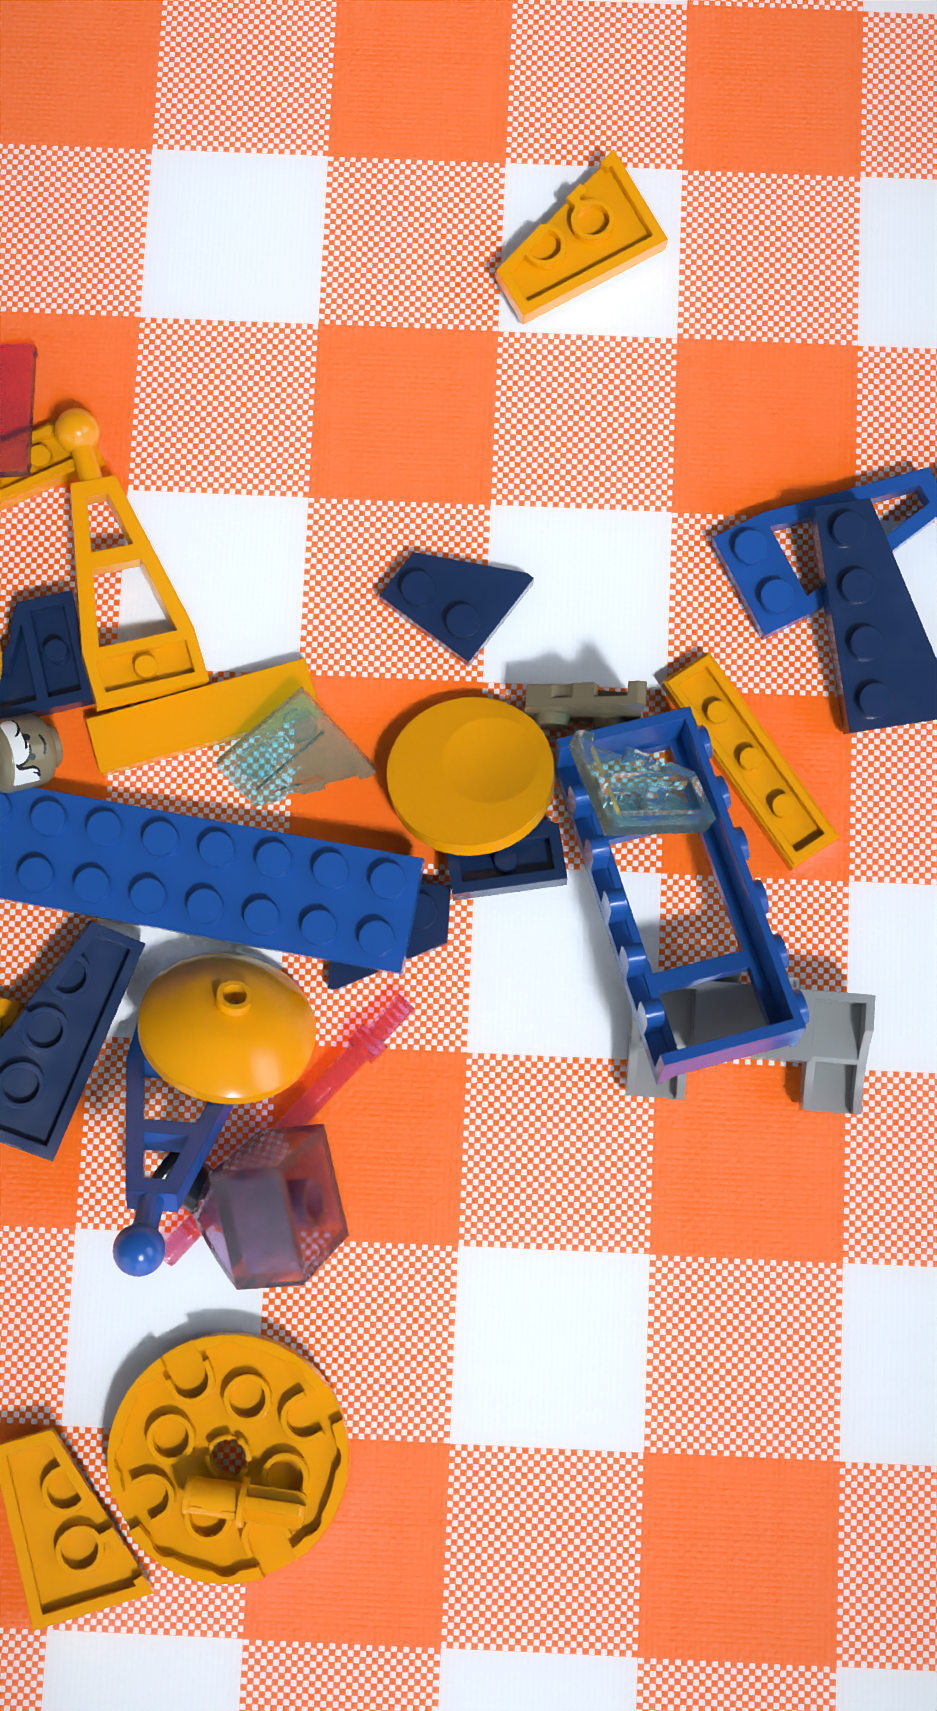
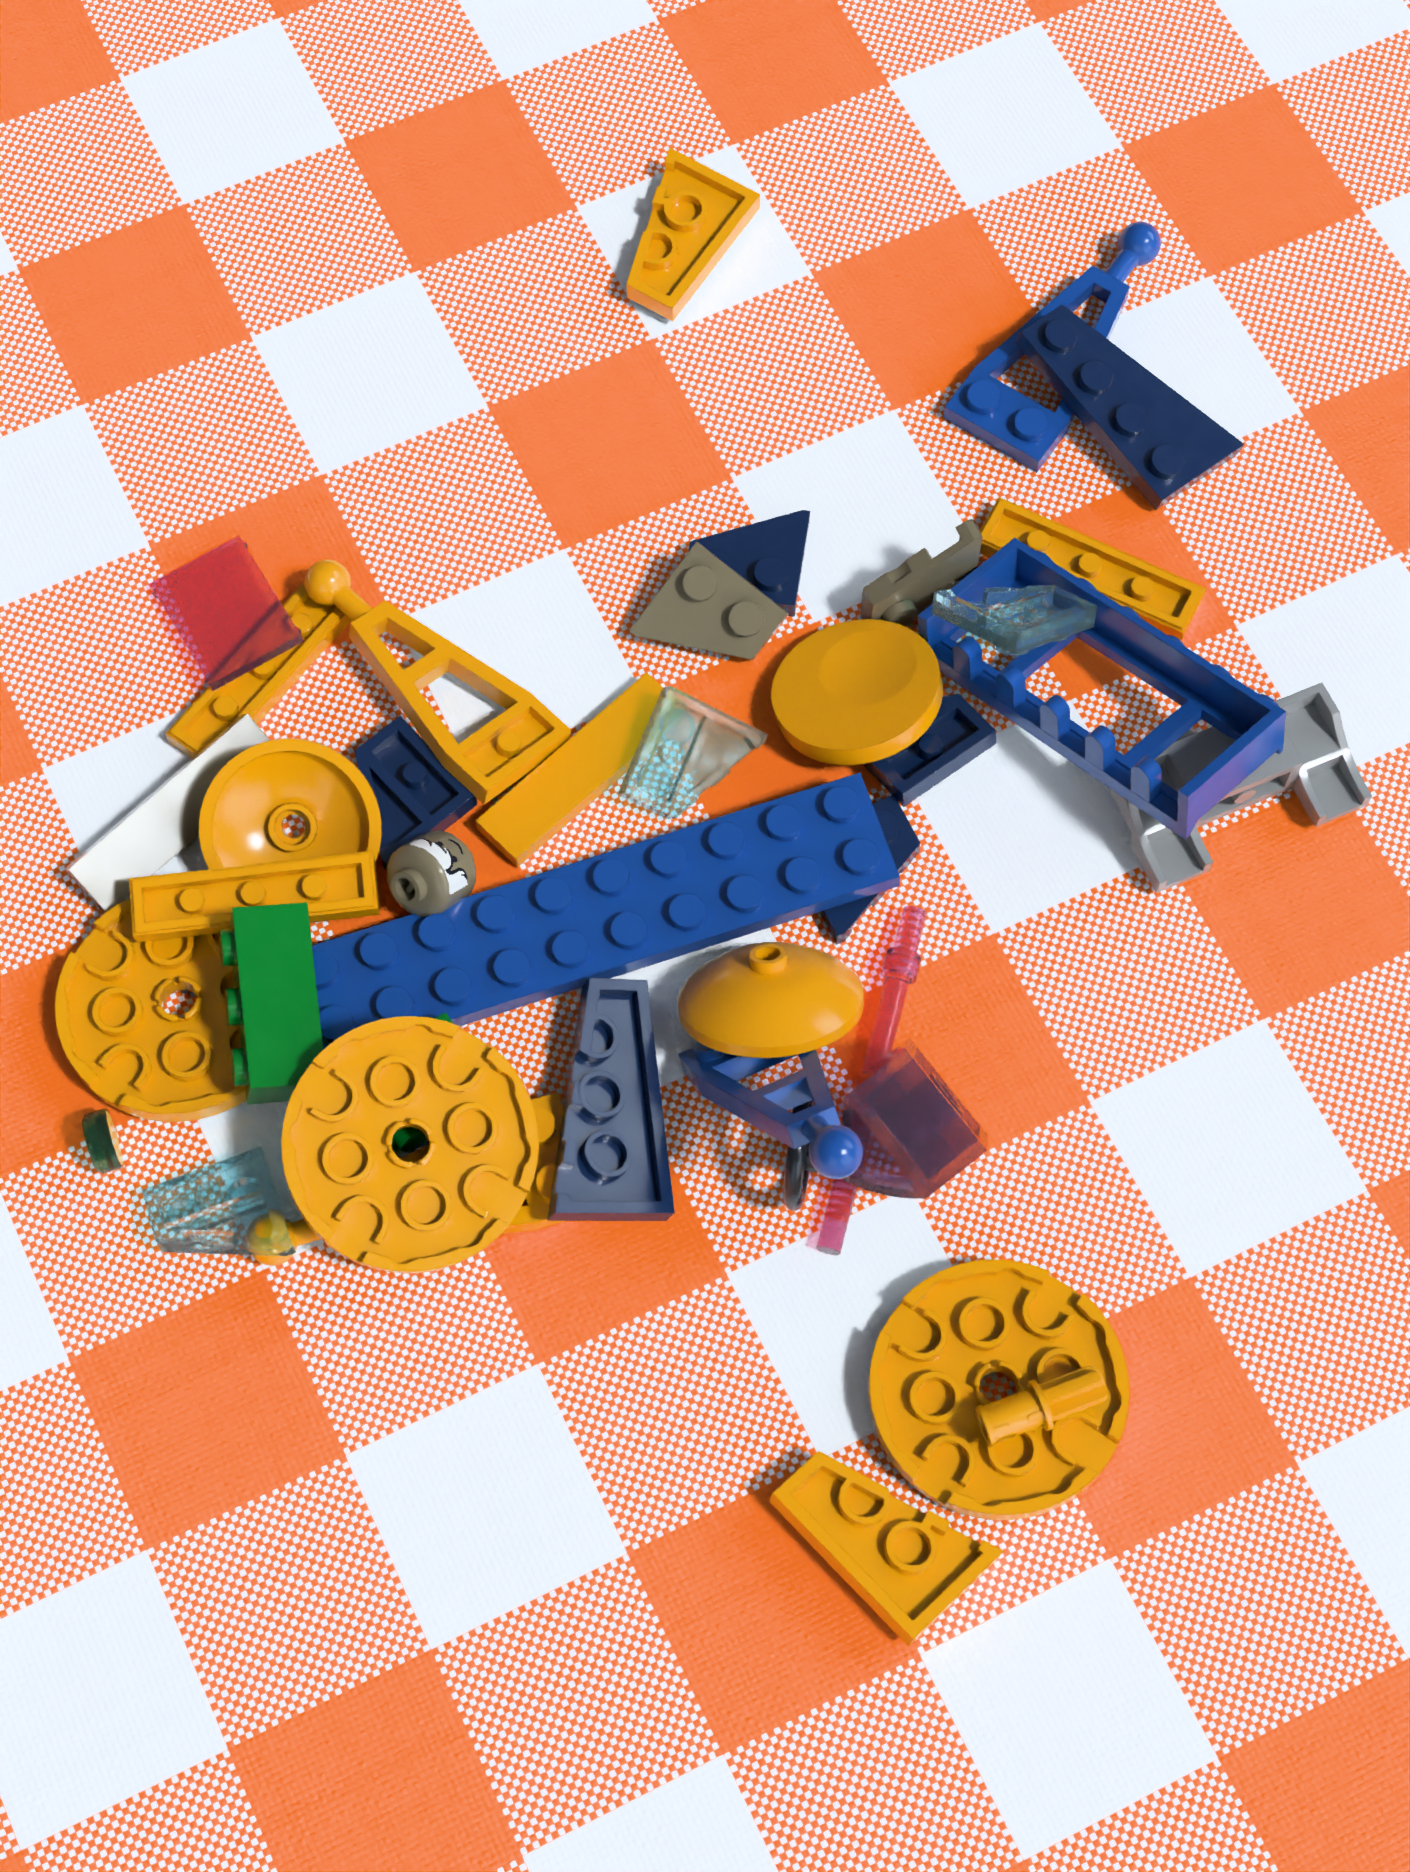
camera: 30 degrees left, 15 degrees down
(392, 628) = (710, 609): none -> dark tan wing

